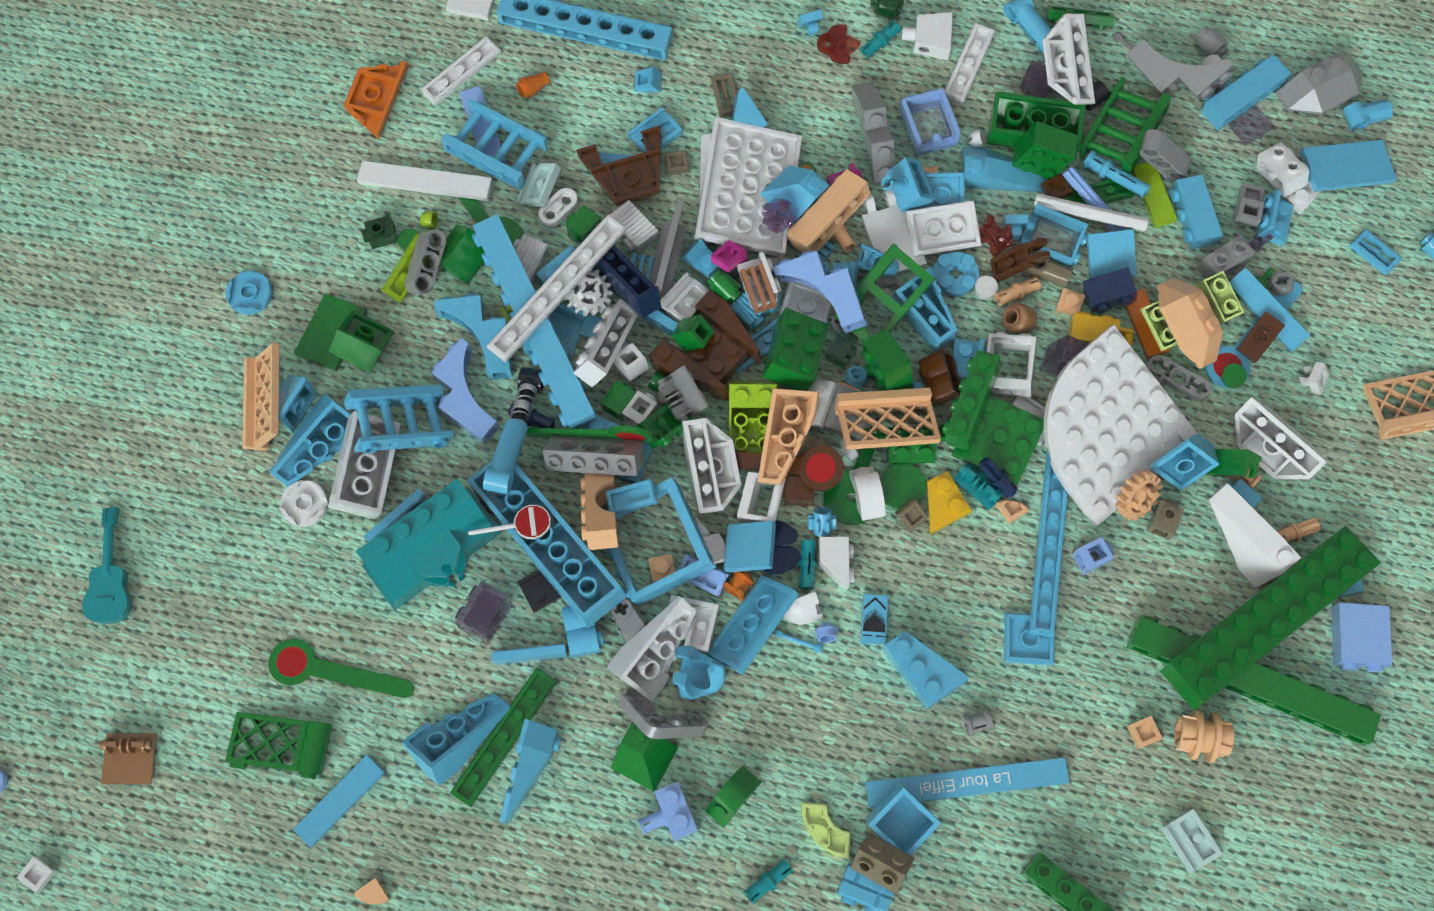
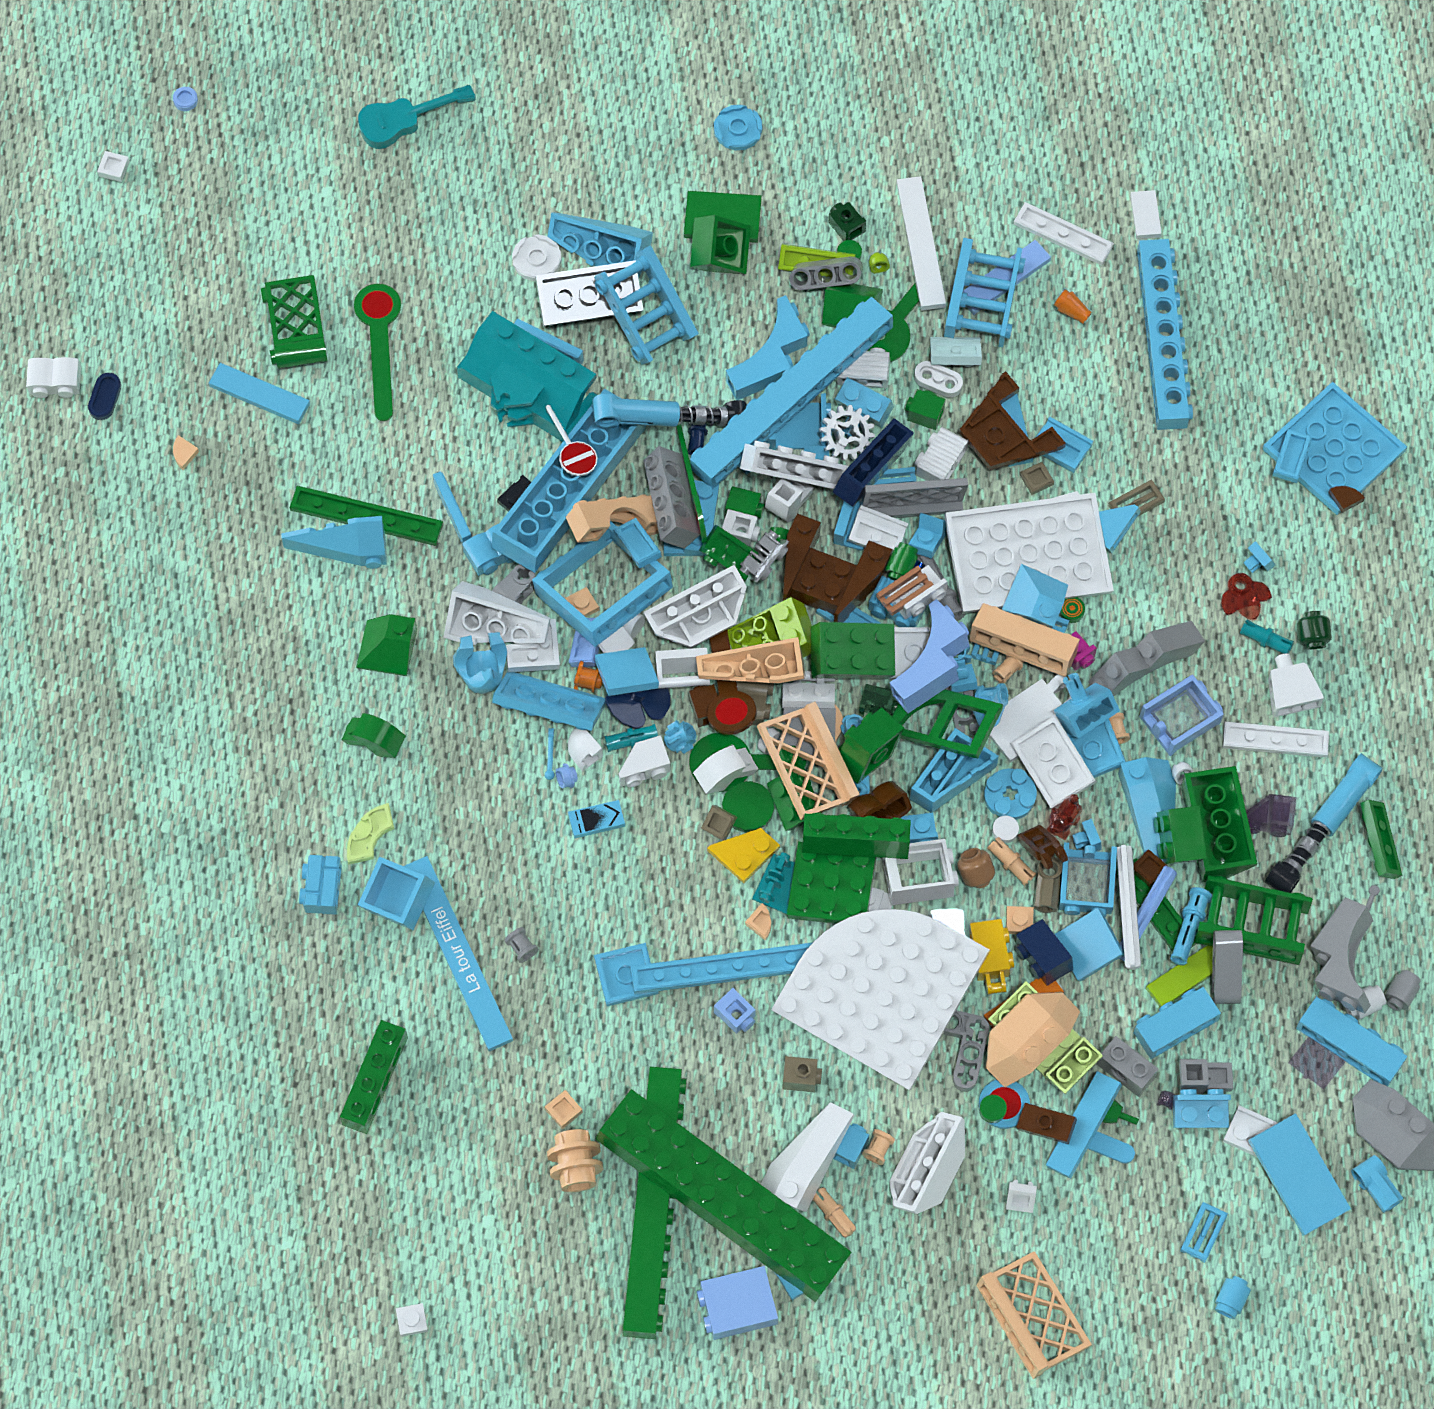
camera: 70 degrees right, 5 degrees down
(128, 758) = (241, 200): medium nougat hinge -> none
(261, 399) = (623, 176): light nougat fence -> none
(295, 399) = (633, 208): medium azure slope -> none
(374, 95) = (1001, 161): orange wing -> none
(449, 743) = (342, 467): medium azure wedge -> none
(459, 403) = (688, 360): light blue arch -> none
(483, 613) = (476, 451): clear purple brick -> none
(556, 288) = (832, 398): white tile -> none
(648, 80) = (1124, 419): medium azure slope -> none
(657, 725) = (415, 642): light grey beam -> none
(672, 813) = (339, 686): light blue brick -> none
(692, 333) = (835, 545): green brick -> none
(729, 256) = (934, 554): dark pink bracket -> none
(768, 881) = (302, 794): teal pin -> none
(771, 219) = (996, 586): clear purple brick -> none
(882, 863) = (348, 883): dark tan brick -> none
(923, 670) = (555, 876): medium azure wedge -> none
(998, 477) = (784, 889): dark blue axle -> none
(1069, 60) = (1296, 825): white wedge -> none
(1138, 495) = (826, 1040): light nougat gear -> none
(1187, 461) = (870, 1073): medium azure slope -> none
(1191, 841) = (466, 1181): light aqua plate -> none
(1236, 463) = (882, 1115): green hinge -> none
(1279, 288) = (1124, 1130): light grey bush -> none
(1283, 169) = (1263, 1100): white brick -> none

